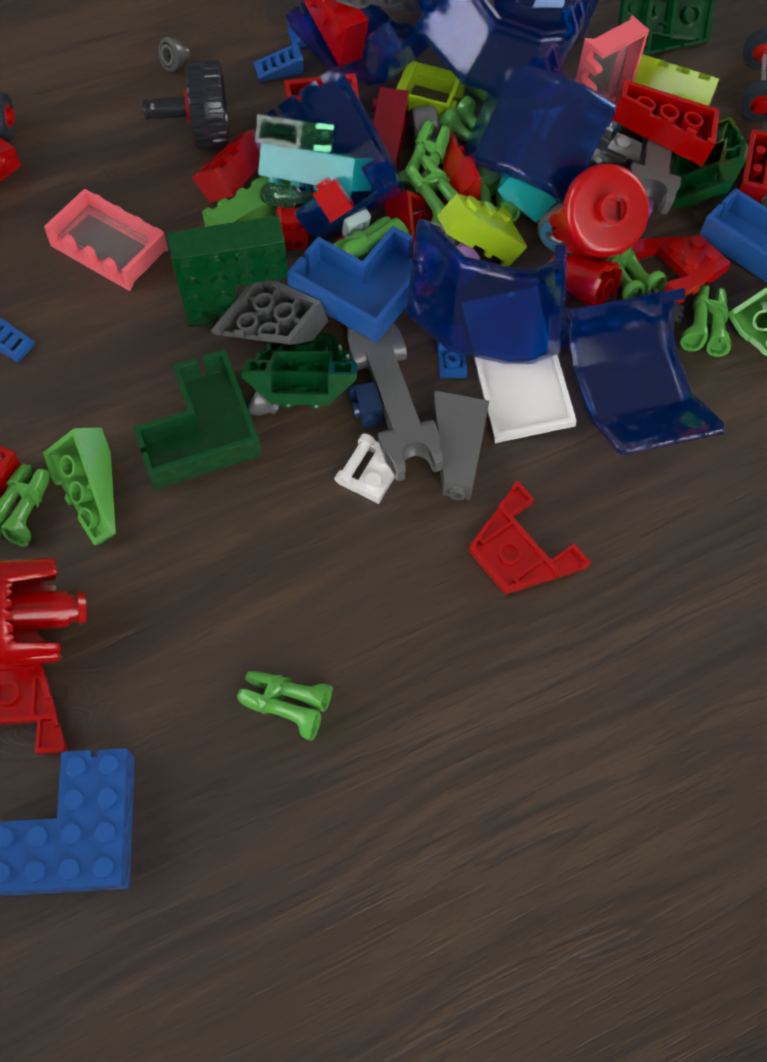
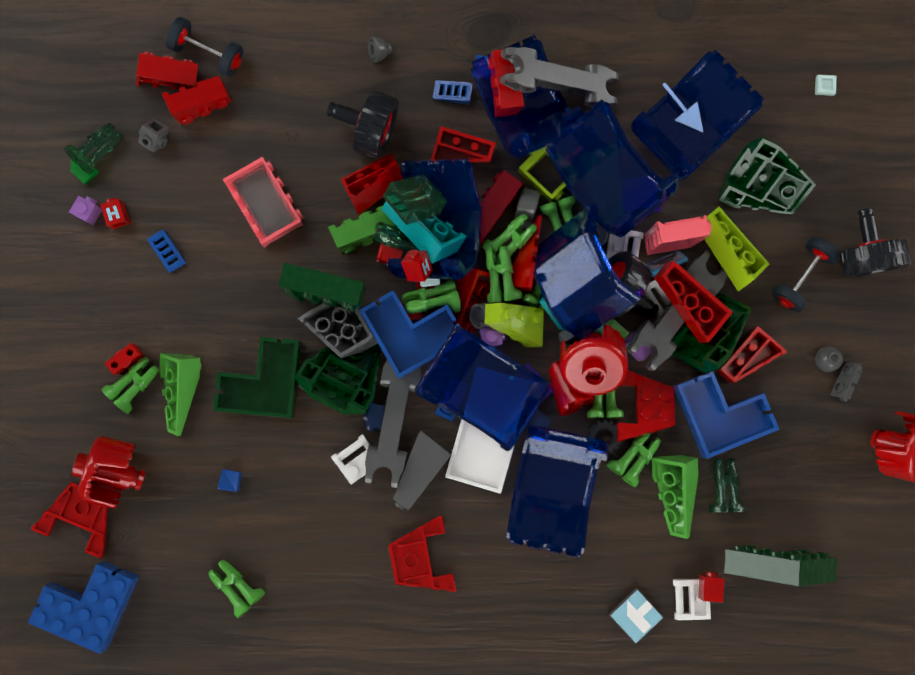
camera: 25 degrees right, 20 degrees up
(211, 565) = (230, 480): none -> blue slope

